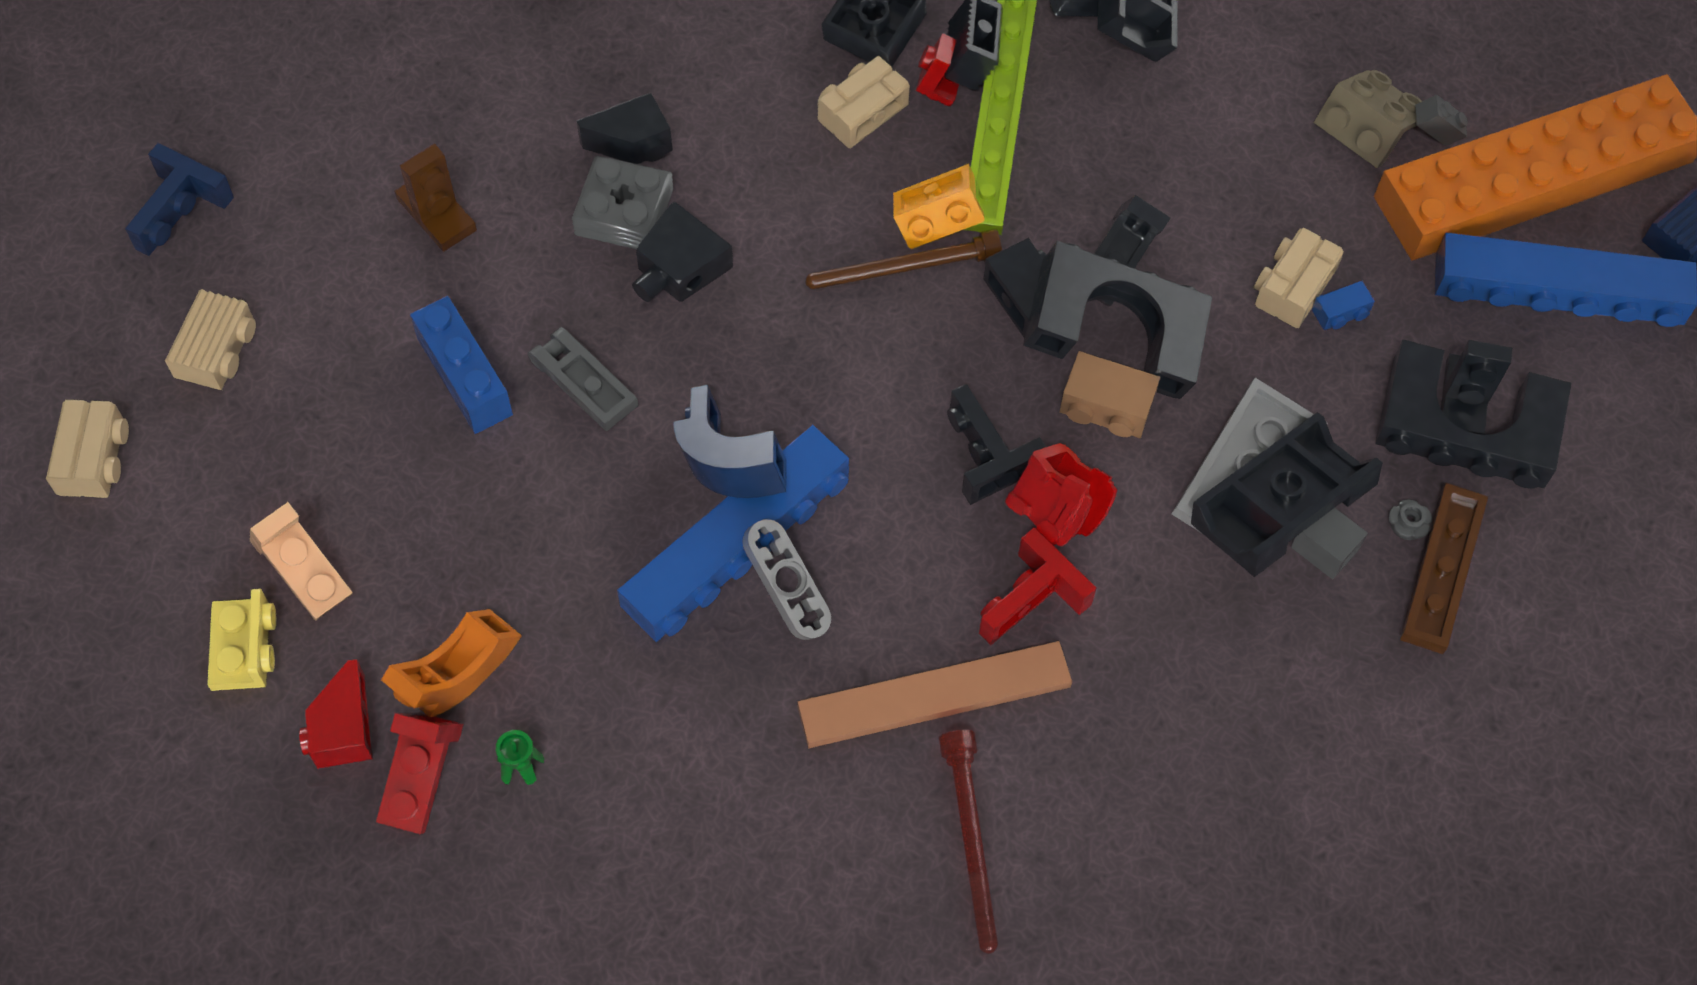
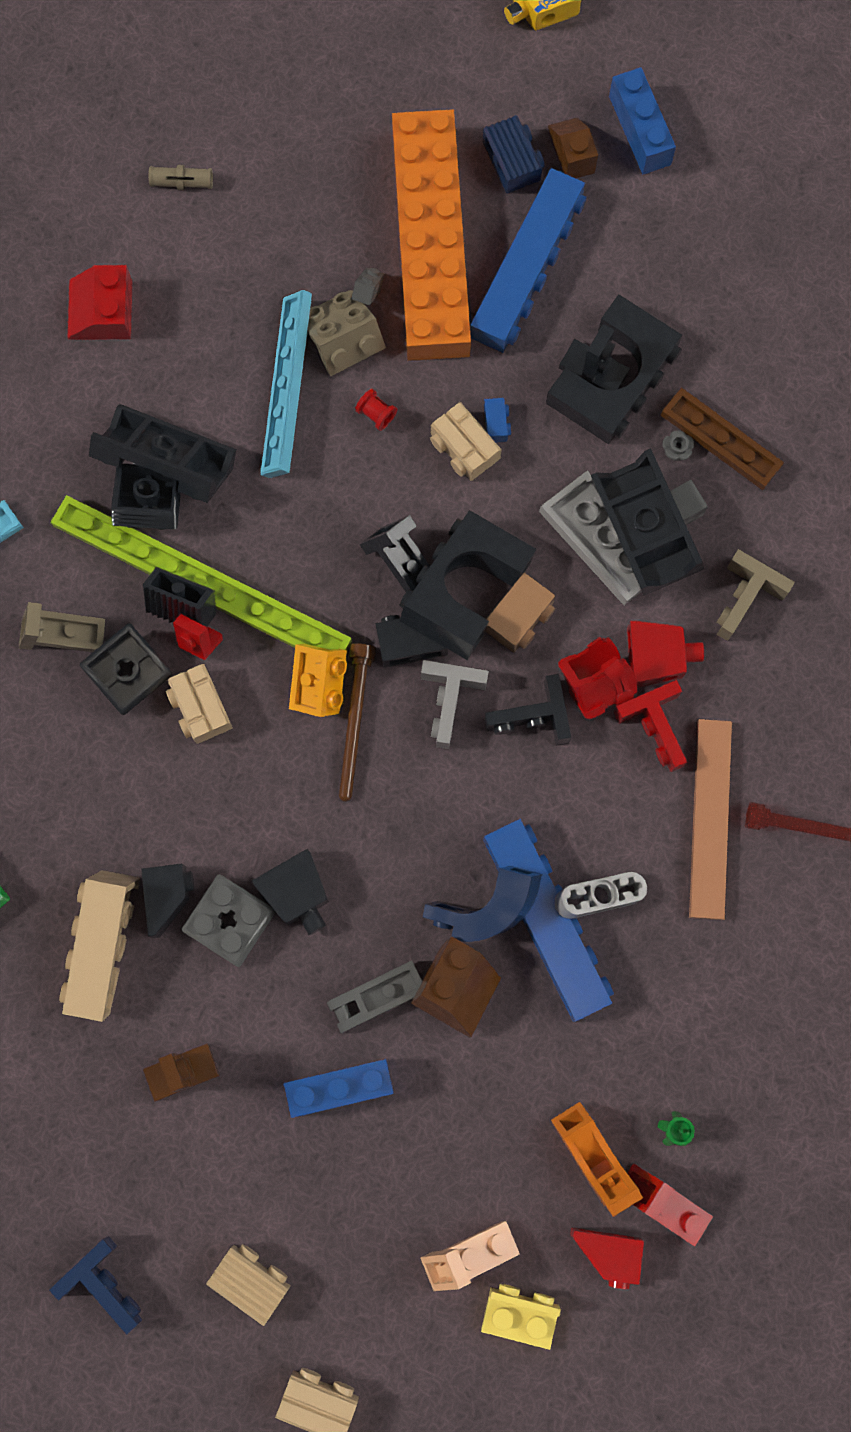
camera: 70 degrees left, 15 degrees up
(553, 81) = (97, 944): none -> tan wedge
(619, 451) = (457, 986): none -> reddish brown slope
(972, 350) = (453, 677): none -> light grey bracket
(1124, 567) = (660, 652): none -> red torso
(1249, 652) = (759, 577): none -> dark tan bracket
(1280, 76) = (286, 384): none -> medium azure tile
(1295, 171) = (376, 409): none -> red bush

